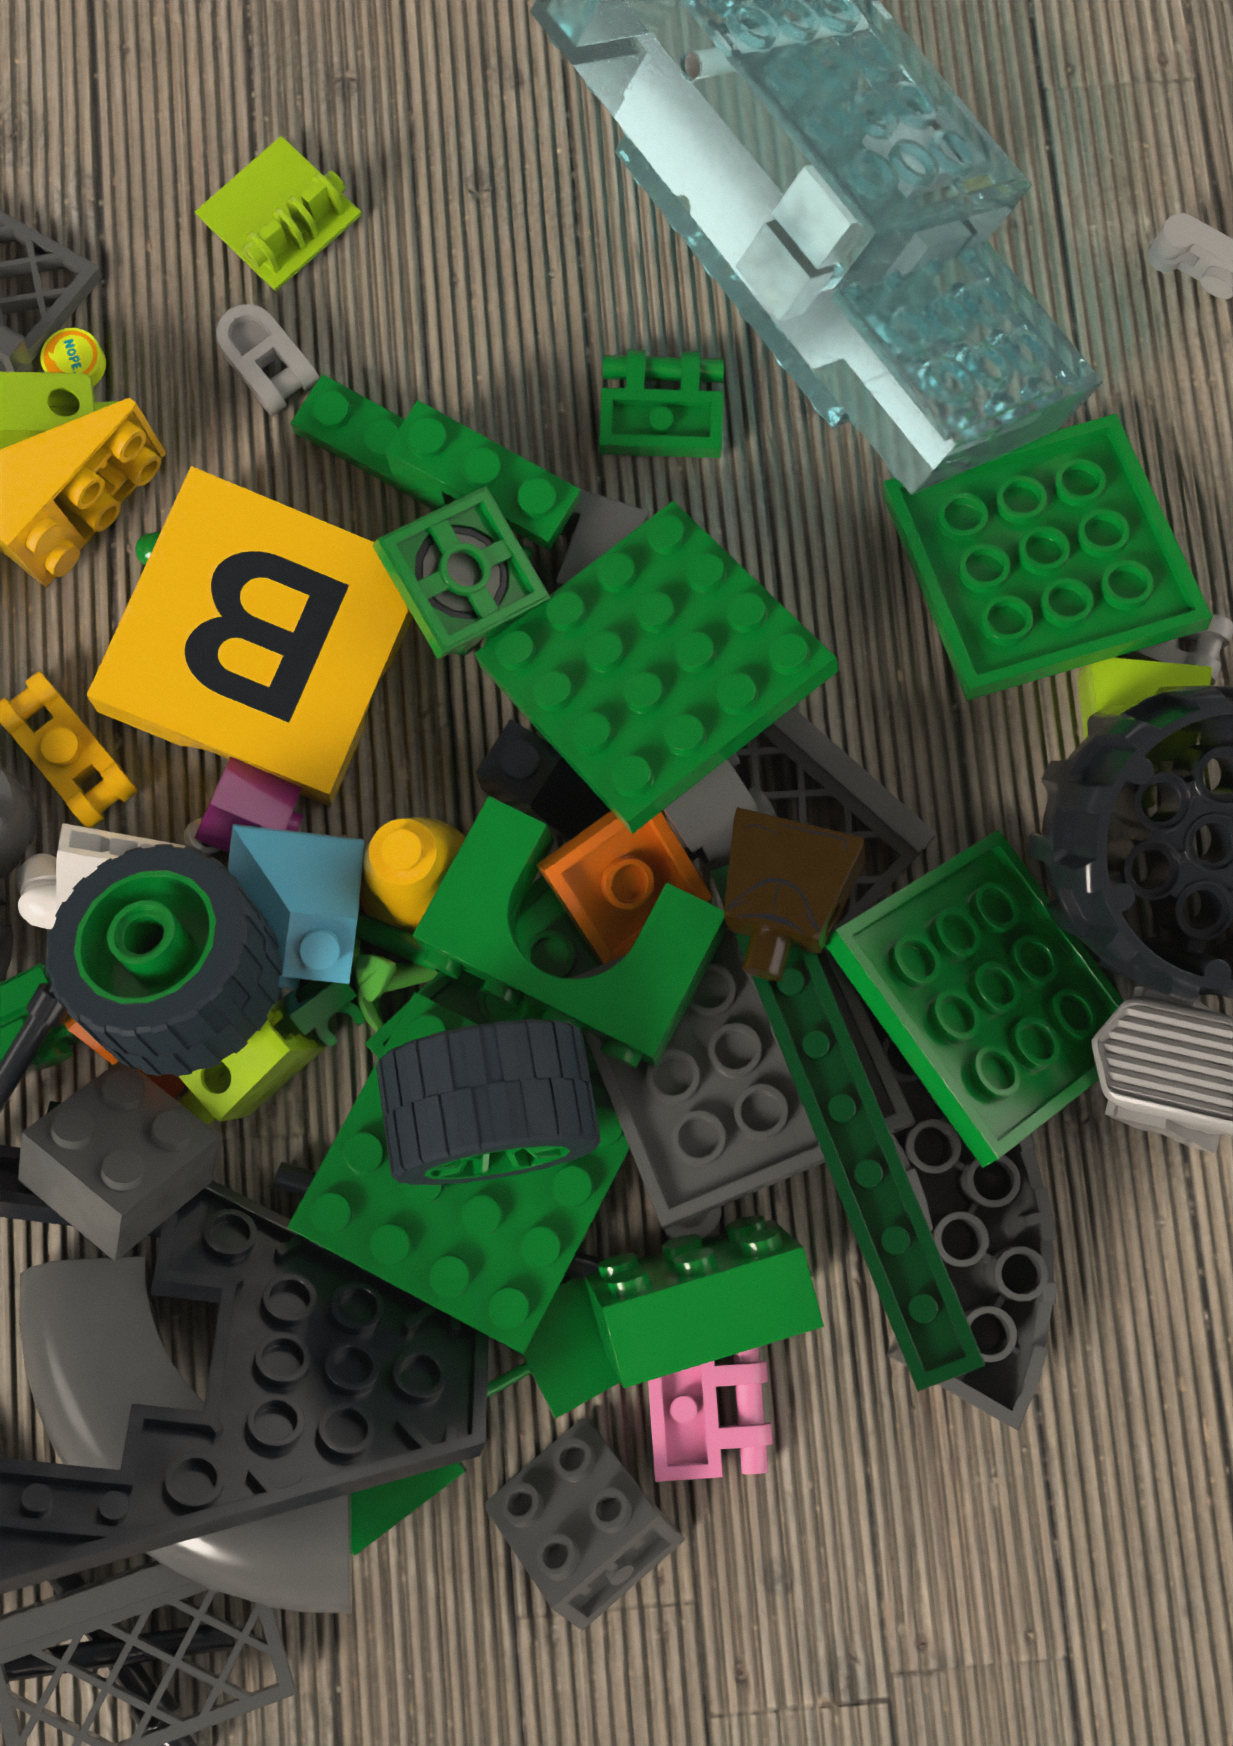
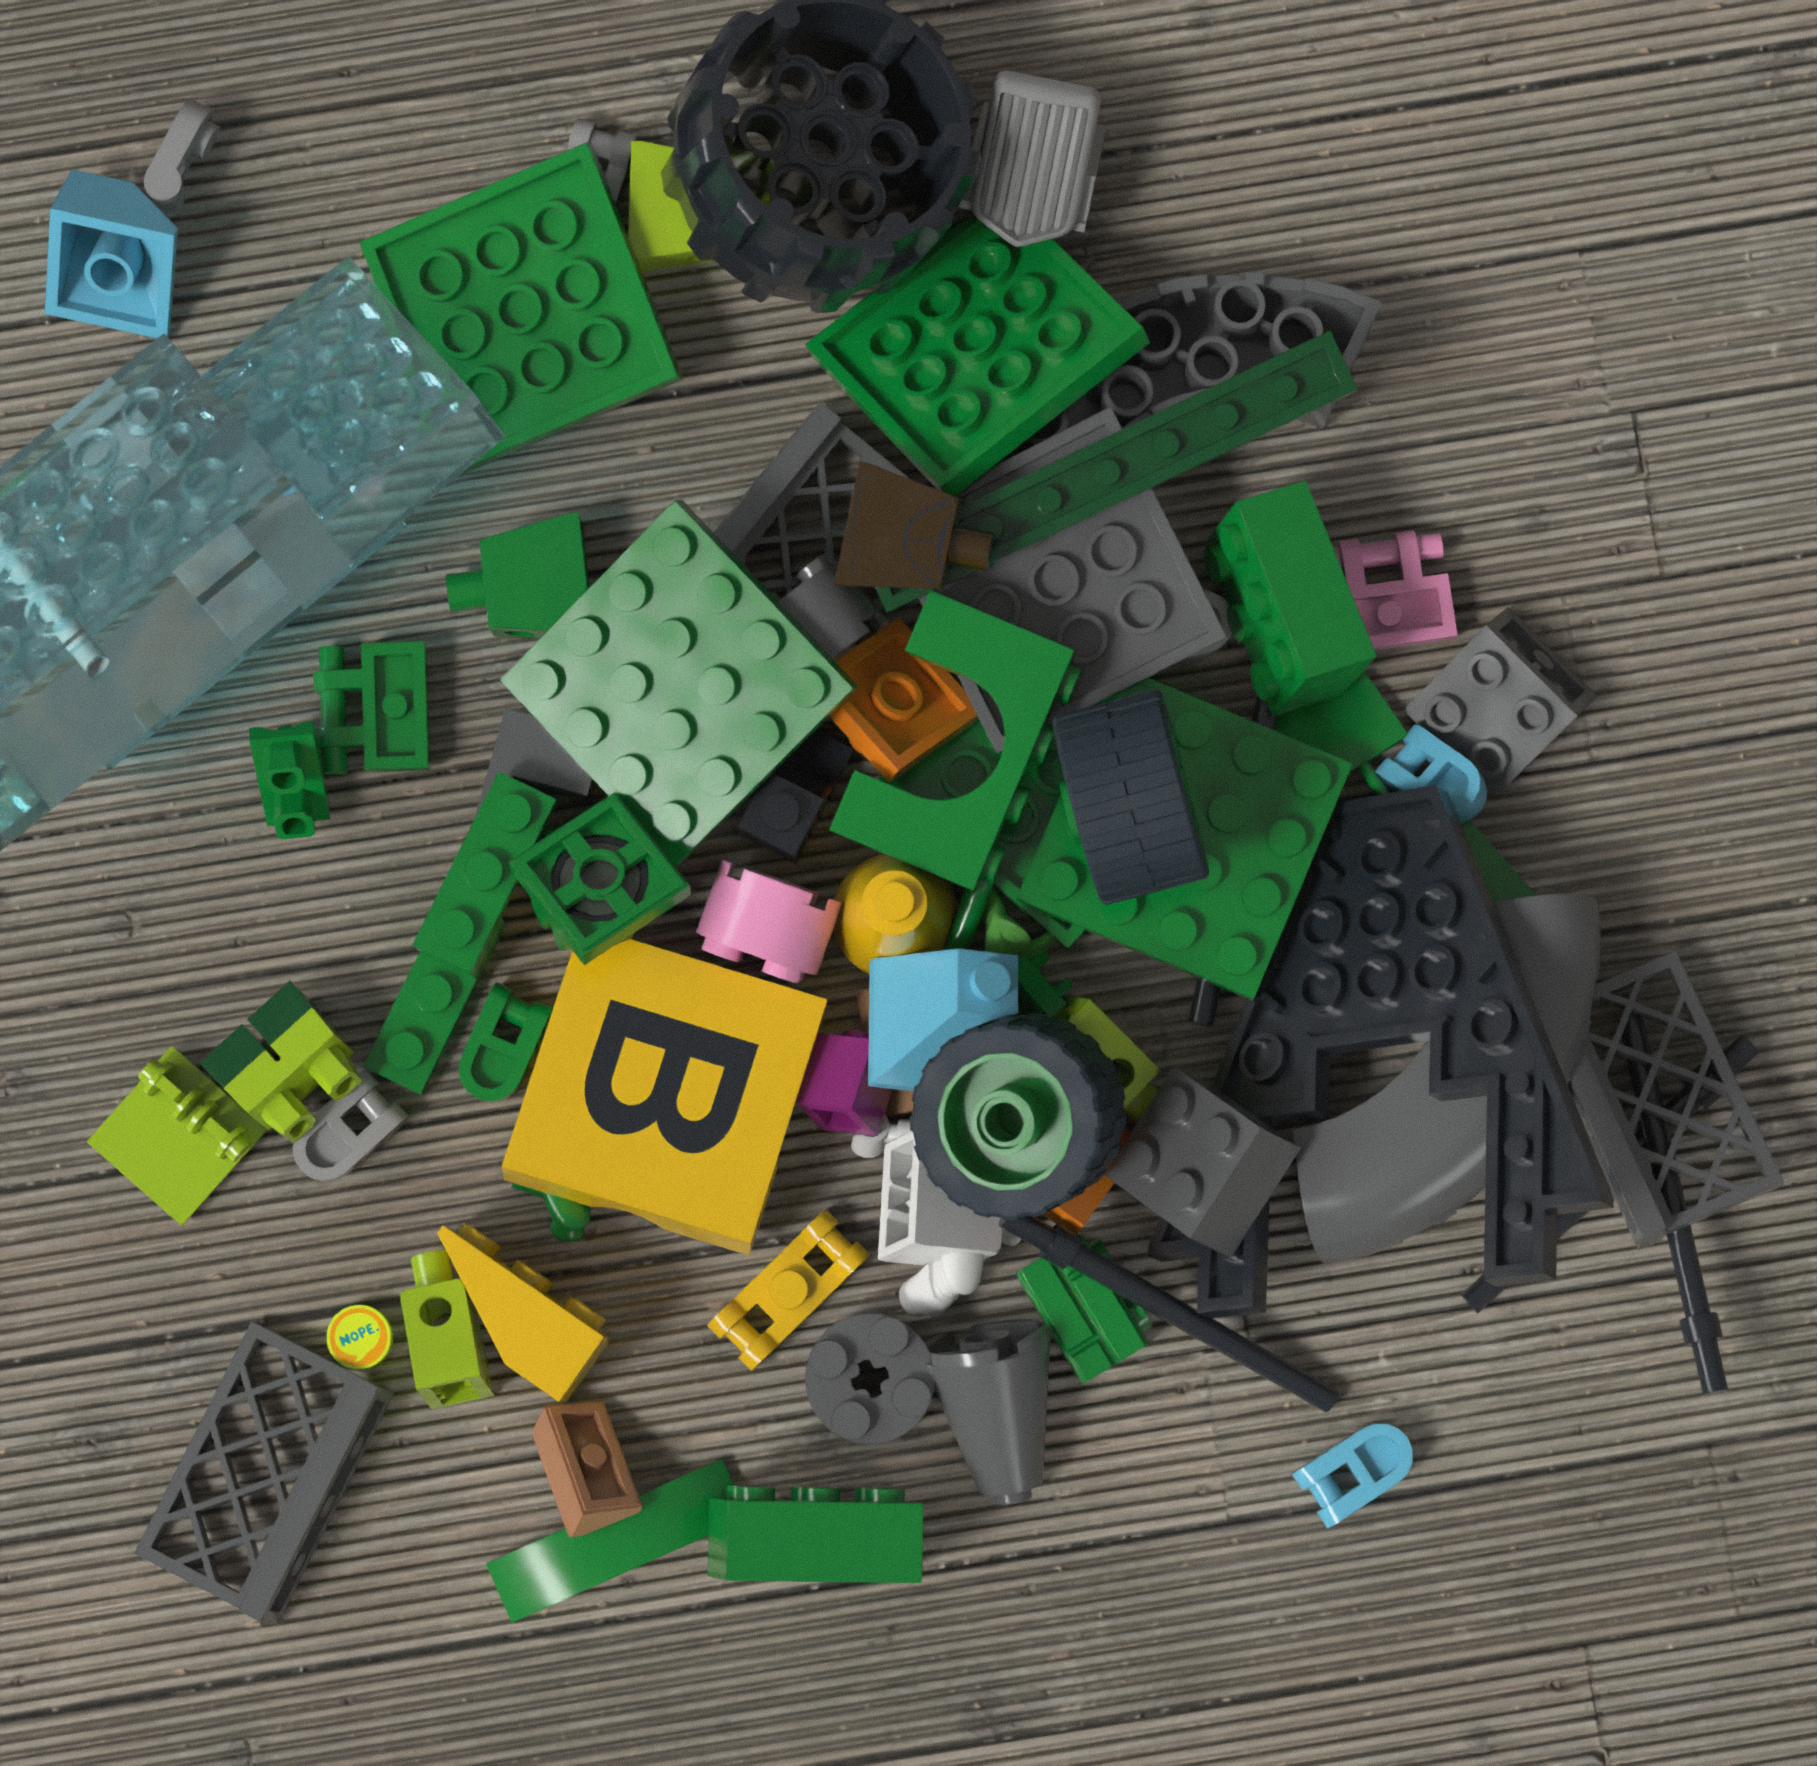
camera: 95 degrees left, 5 degrees up
(315, 487) = (491, 1066): none -> green plate
(330, 294) = (309, 1057): none -> lime hips
(415, 745) = (768, 921): none -> bright pink brick
(503, 1455) = (1447, 770): none -> medium azure plate
(598, 319) = (290, 778): none -> green hips
(782, 544) = (525, 577): none -> green torso
(1111, 184) = (110, 256): none -> medium azure slope

